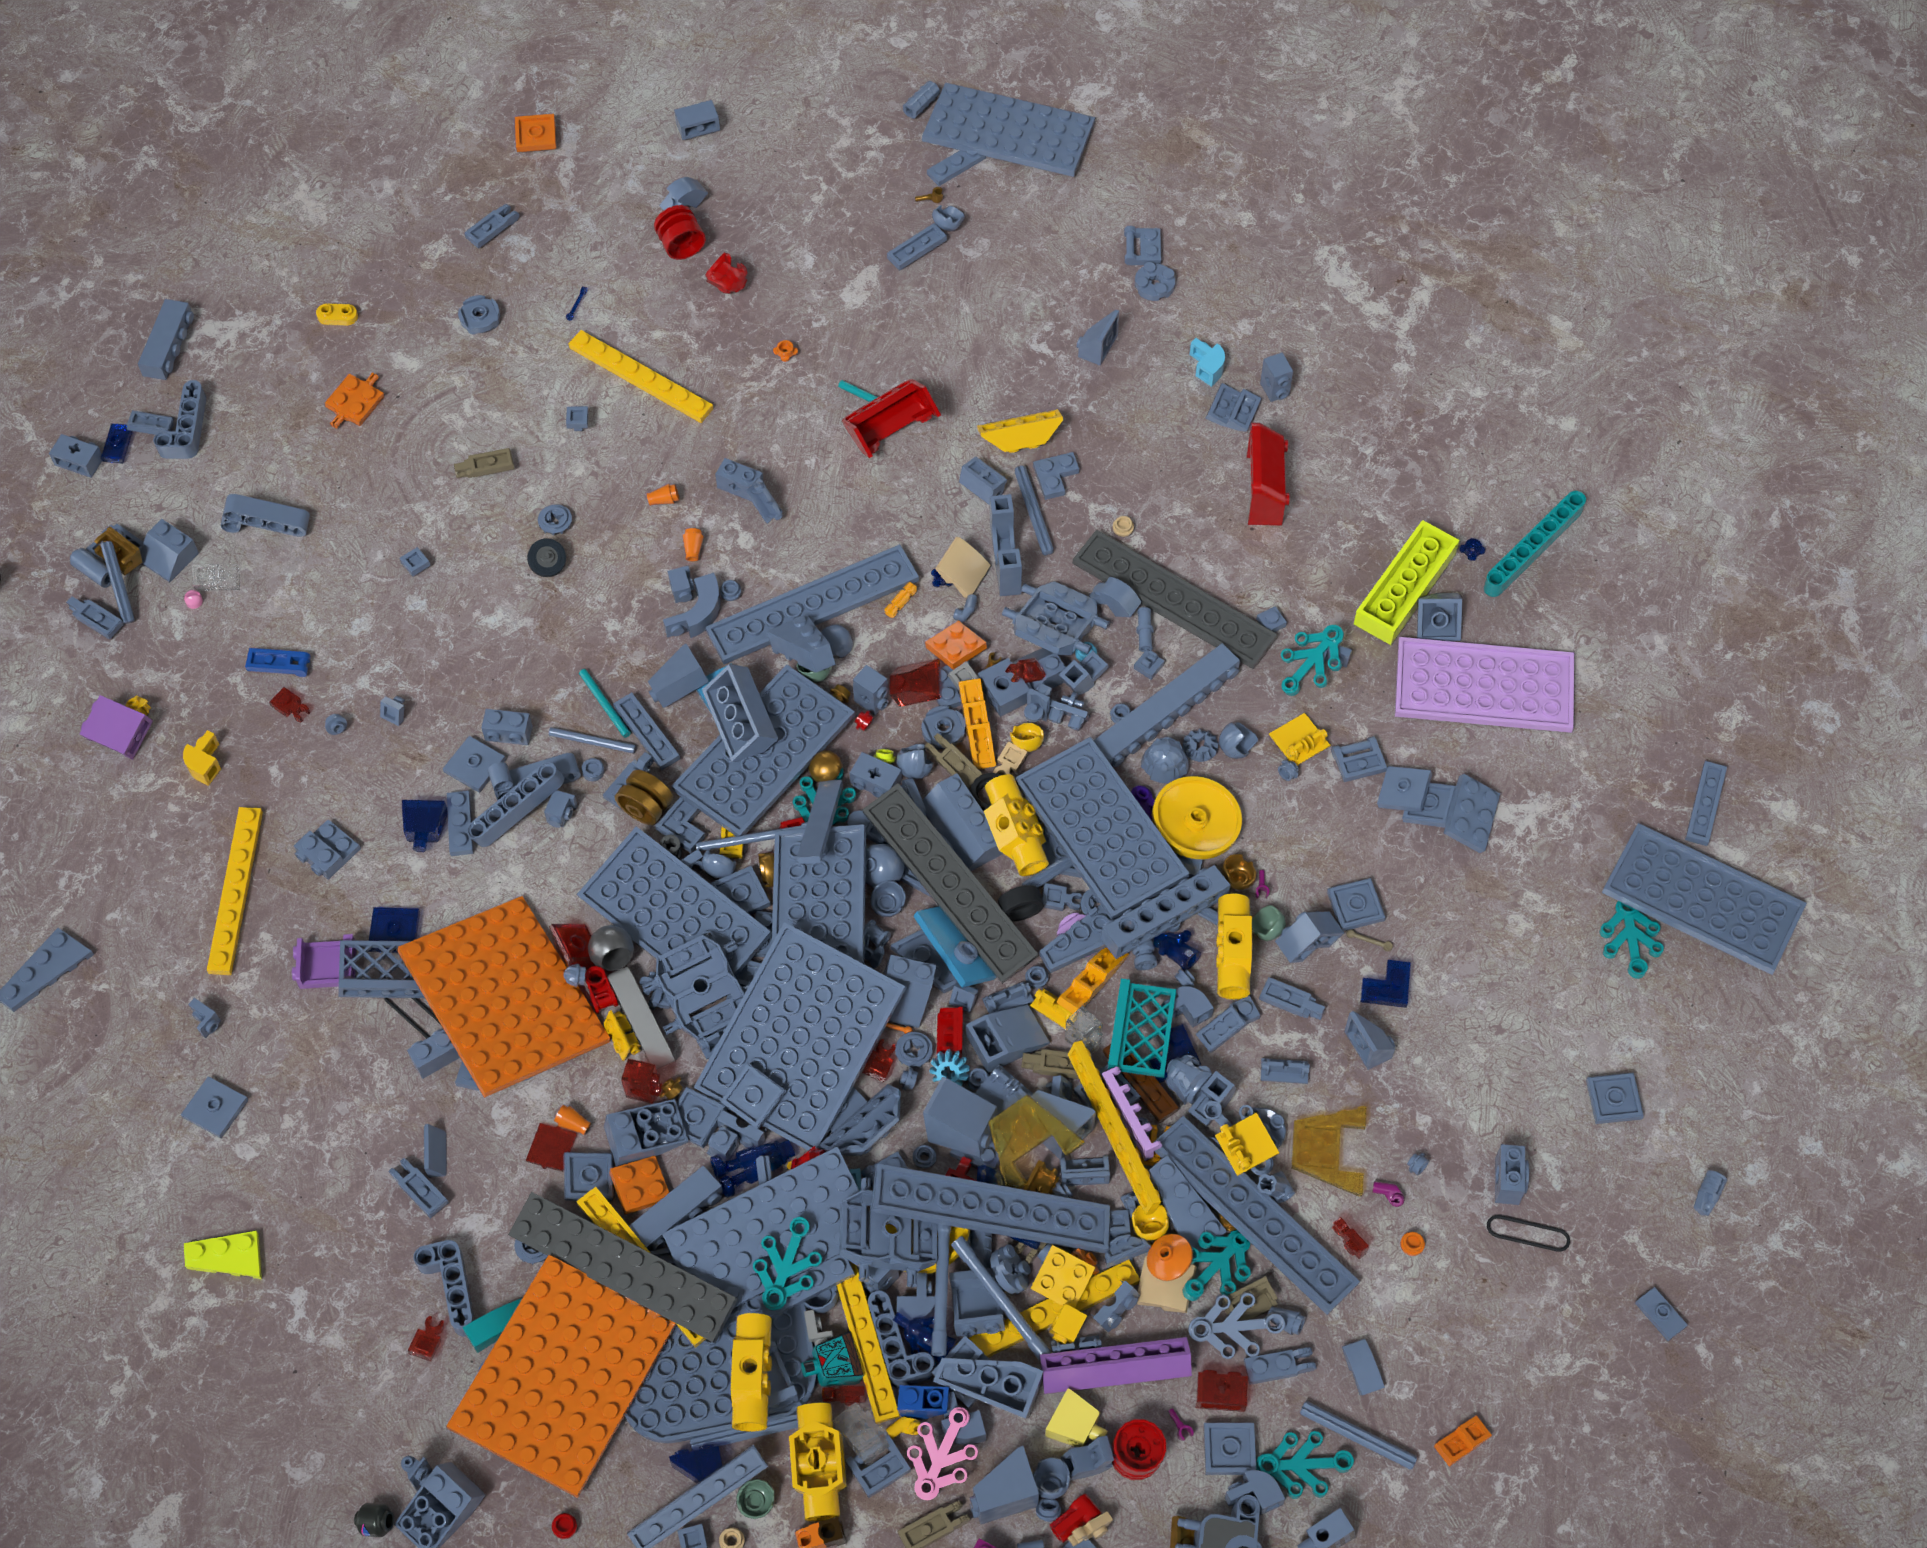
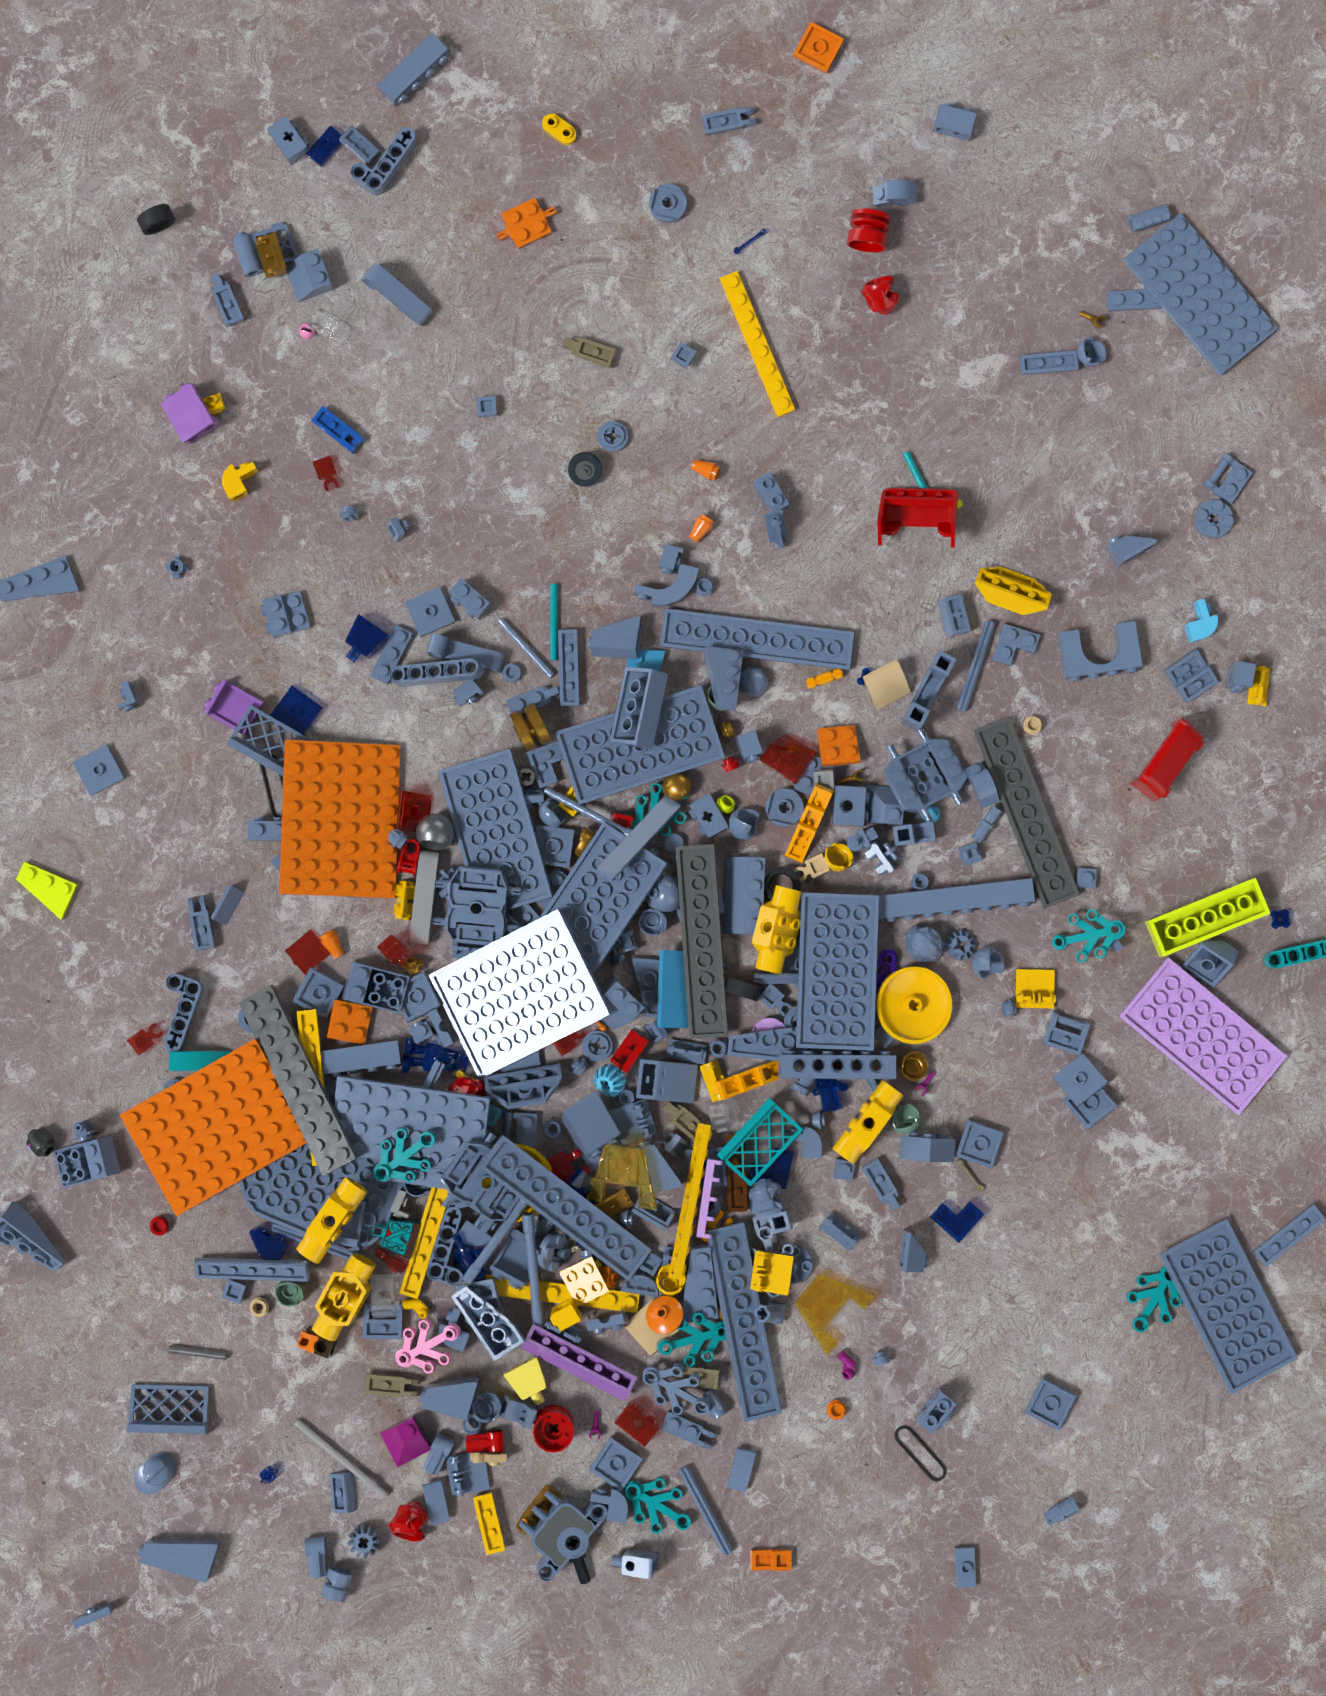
camera: 30 degrees right, 25 degrees up
(117, 582) = (256, 284): sand blue axle -> none
(181, 867) = (177, 561): none -> sand blue plate
(234, 891) = (204, 605): yellow plate -> none
(753, 1096) = (461, 1013): sand blue plate -> none
(782, 346) = (882, 389): orange plate -> none
(911, 789) = (724, 844): sand blue plate -> none
(922, 1401) = (437, 1302): blue slope -> none
(953, 761) = (771, 844): dark tan hinge -> none
(962, 615) = (869, 720): sand blue arm -> none
(965, 952) = (677, 1002): sand blue tile -> none
(1027, 669) = (870, 809): clear red plate -> none
(1126, 455) = (1077, 665): none -> sand blue arch
(1221, 1029) = (817, 1173): sand blue plate -> none
(1300, 382) = (1258, 692): none -> yellow hinge
(1352, 1241) = (795, 1384): clear red plate -> none
(1471, 813) = (1113, 1132): sand blue plate -> none

